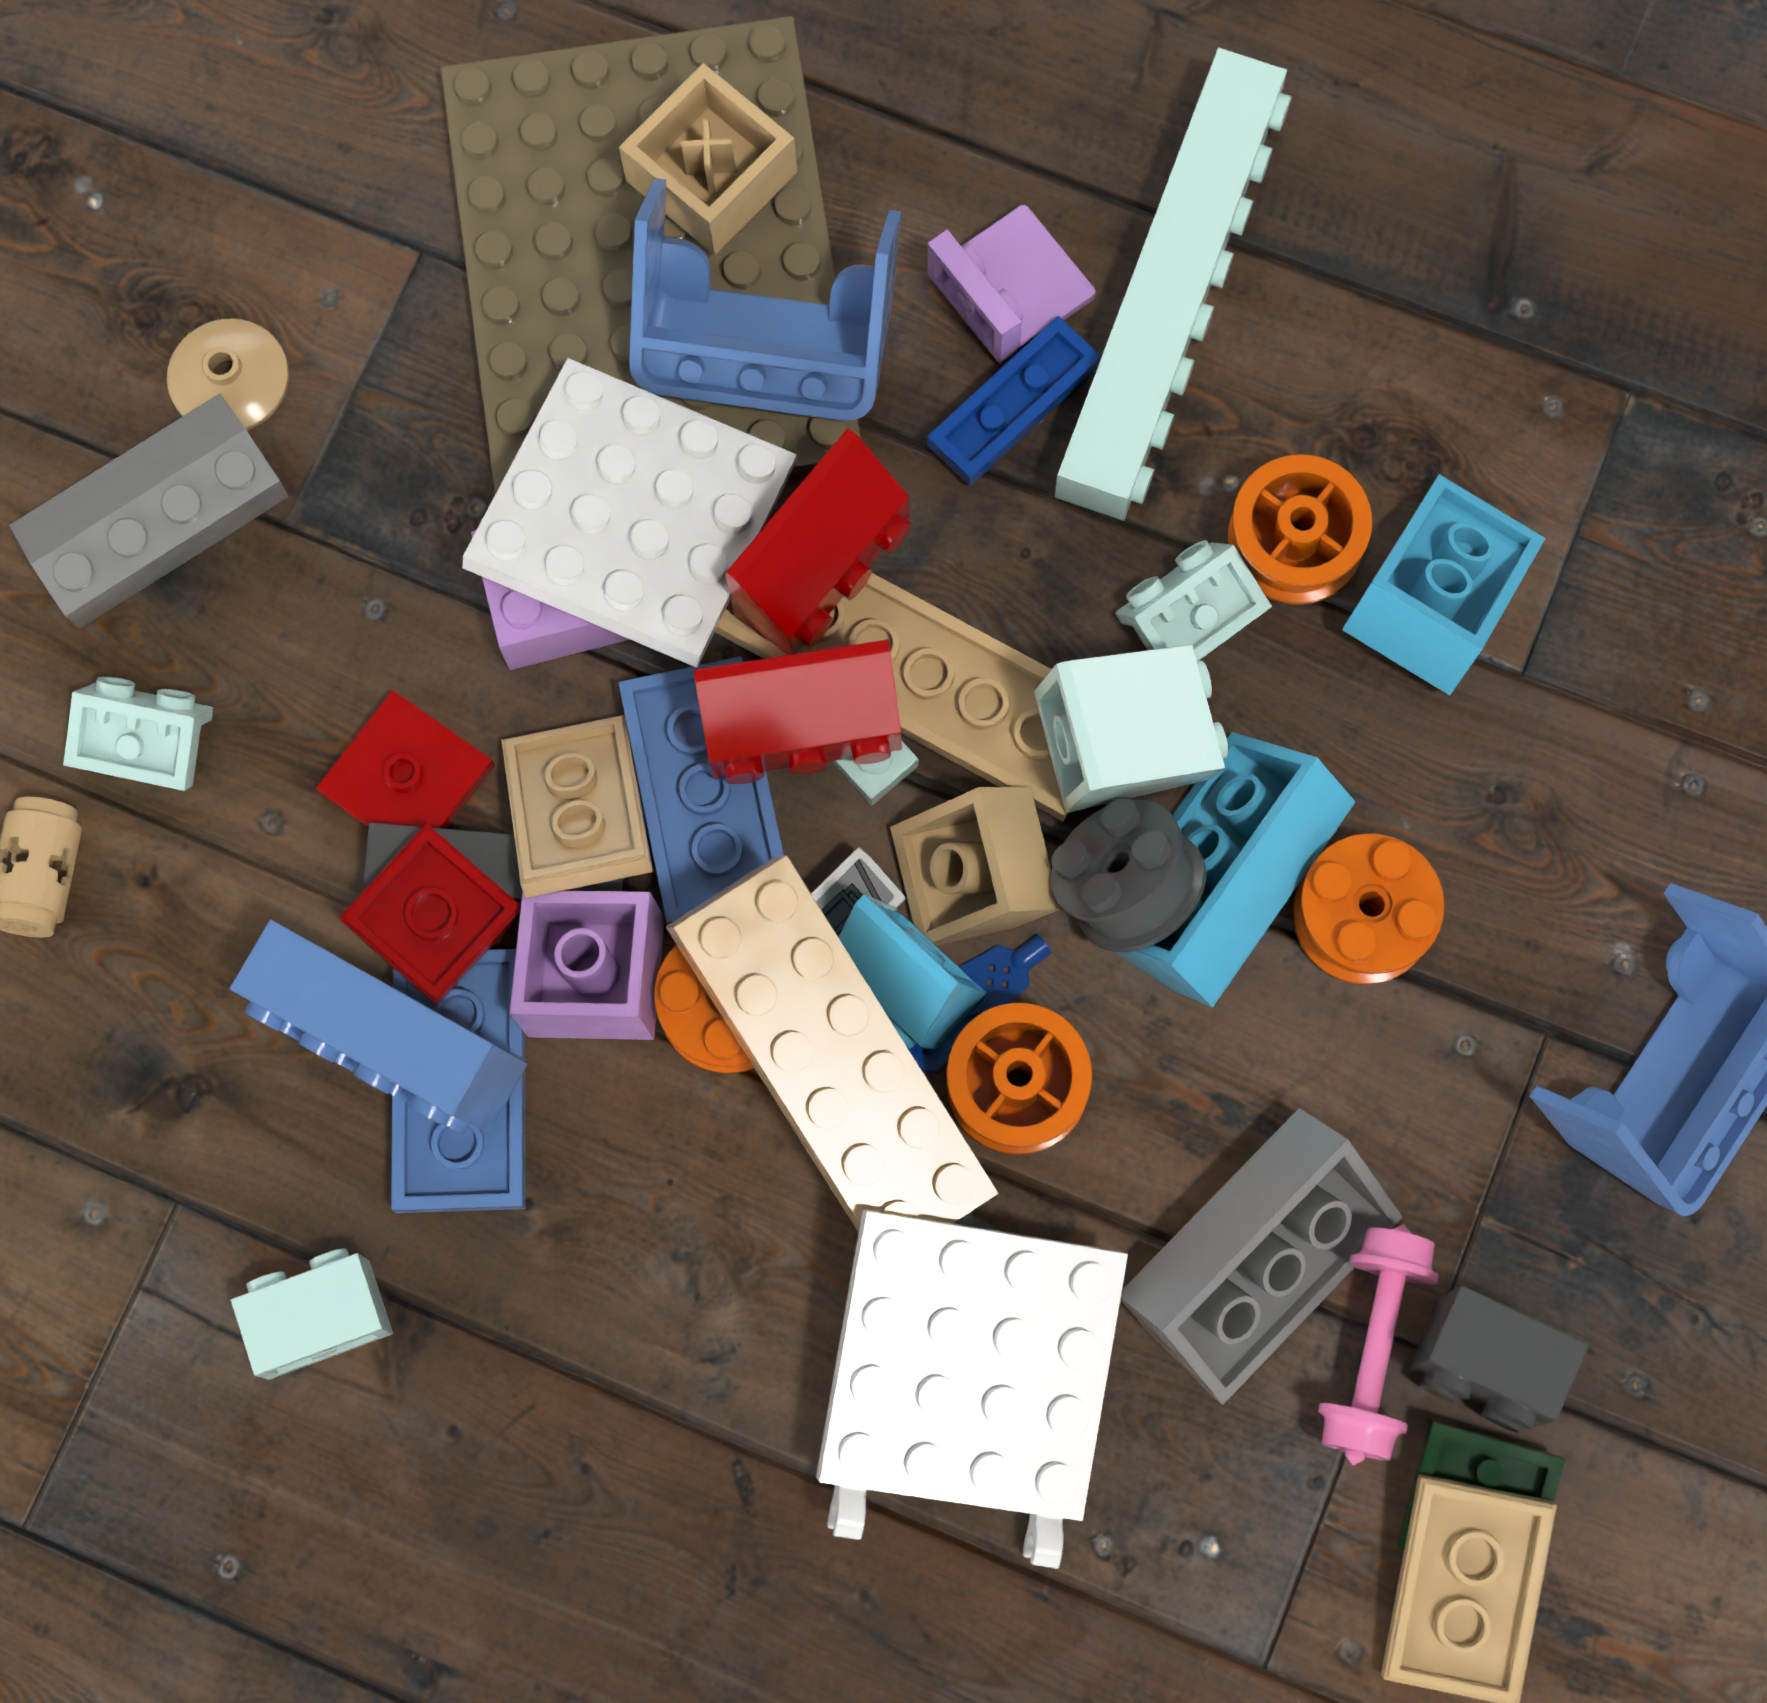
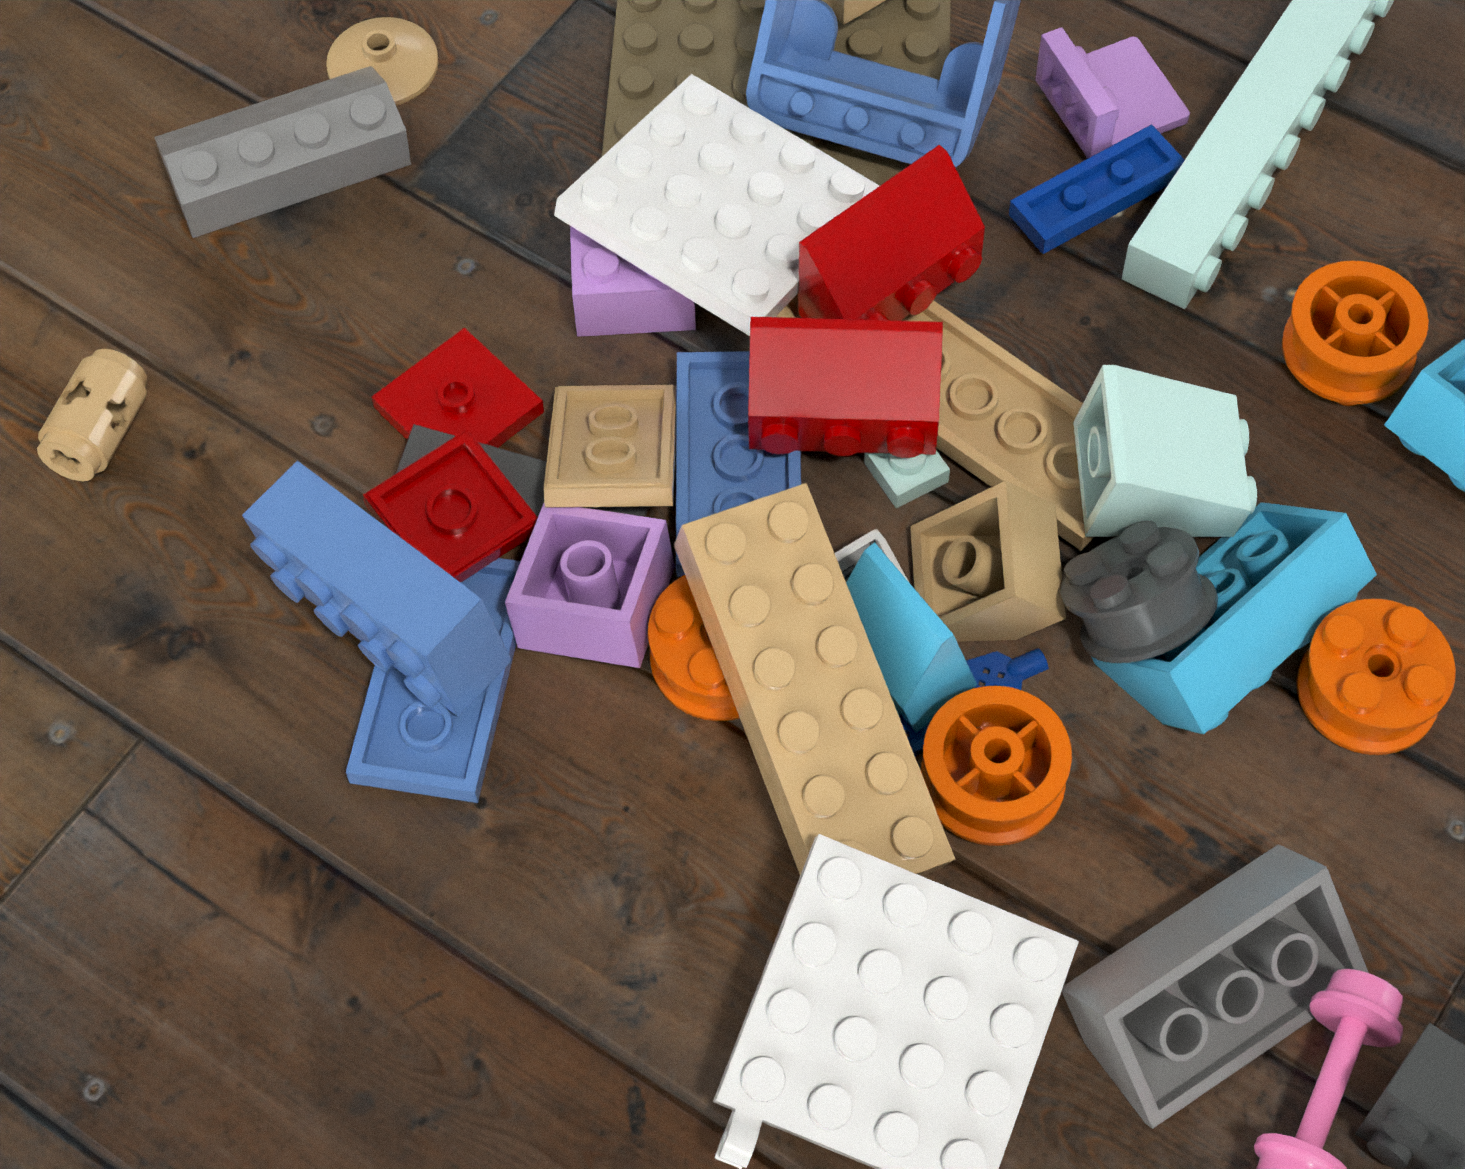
camera: 10 degrees right, 15 degrees down
(135, 732) = (217, 324): light aqua bracket -> none
(310, 1314) = (241, 856): light aqua brick -> none
(1196, 602) = (1261, 373): light aqua bracket -> none

